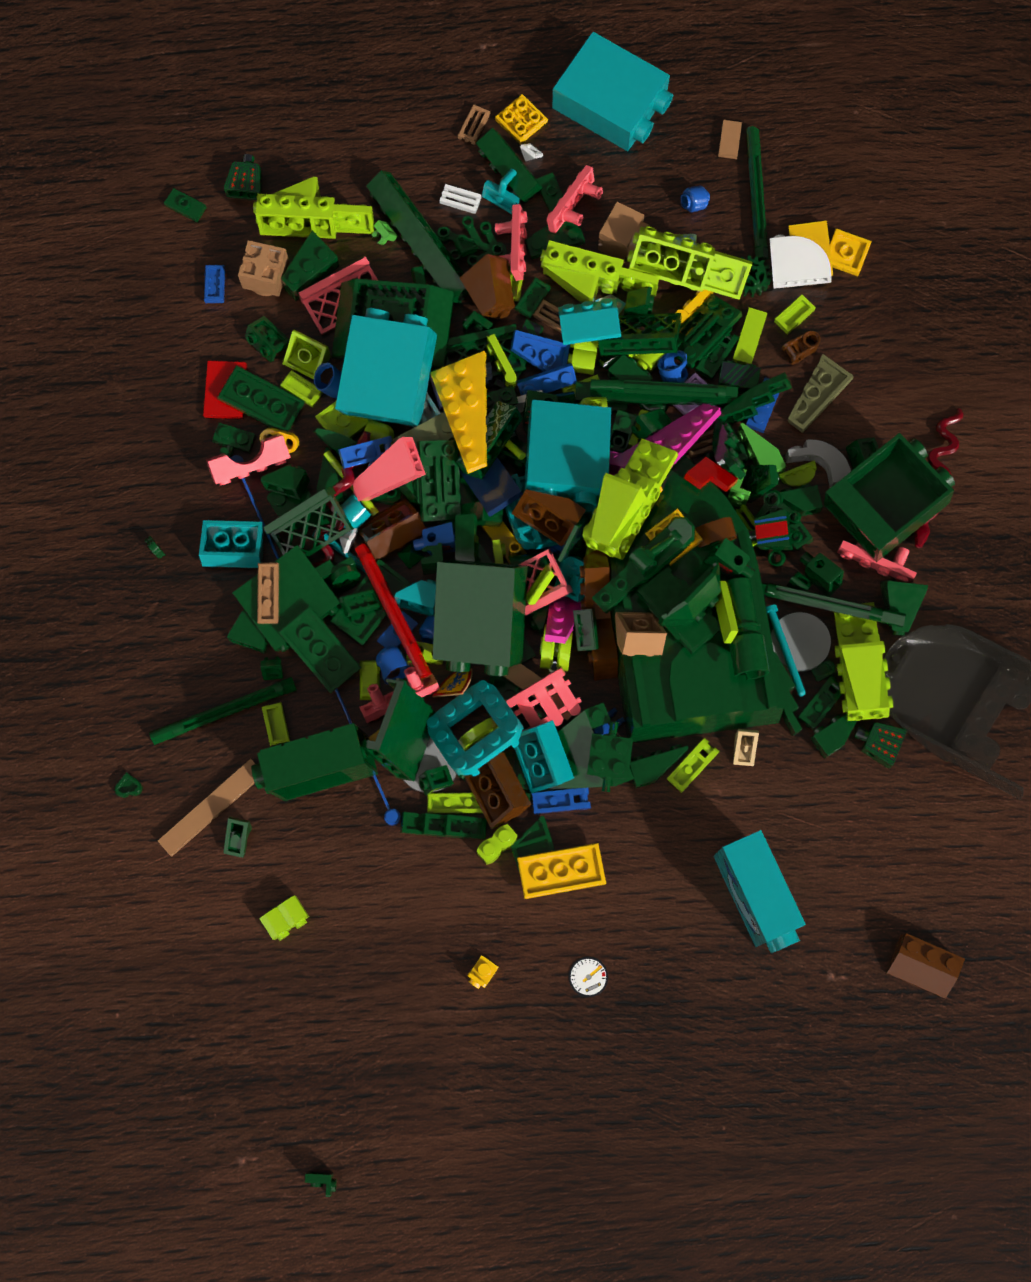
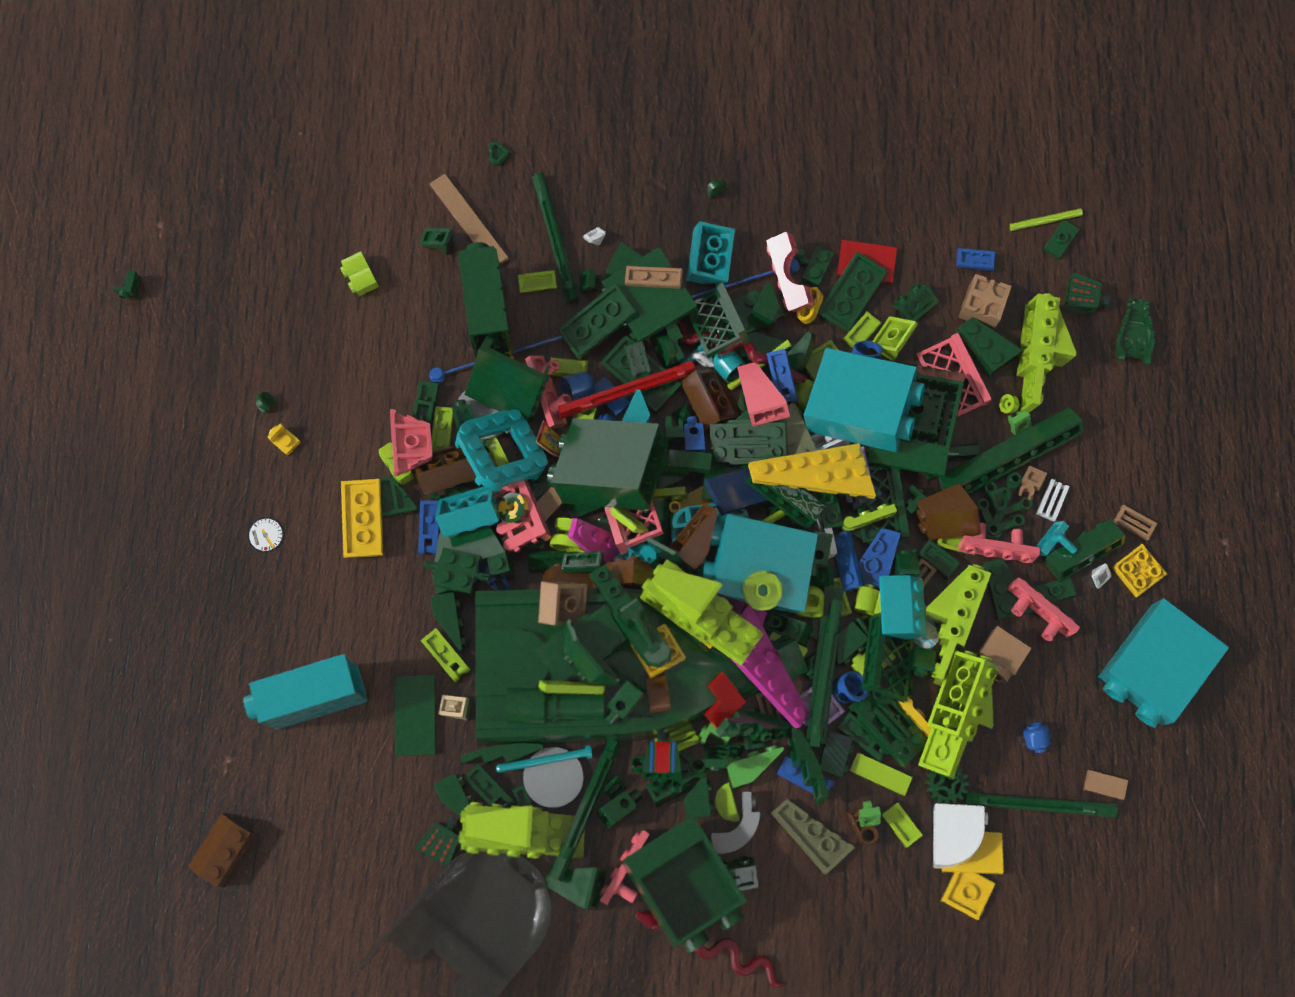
camera: 95 degrees right, 0 degrees up
(164, 220) = (1046, 219): none -> lime bar
(218, 668) = (595, 236): none -> white slope
(283, 130) = (1136, 333): none -> dark green animal
(367, 242) = (1009, 404): none -> lime tile
(442, 1000) = (265, 402): none -> dark green tile
(444, 215) = (1032, 481): none -> medium nougat plate
(475, 828) = (409, 442): none -> coral wing
(536, 716) = (520, 511): none -> piece
(547, 322) = (906, 564): none -> dark green slope
(582, 674) = (544, 559): none -> dark green plate
(594, 453) = (751, 594): none -> lime tile
(758, 788) = (415, 715): none -> dark green tile
(794, 338) = (868, 815): none -> bright green tile

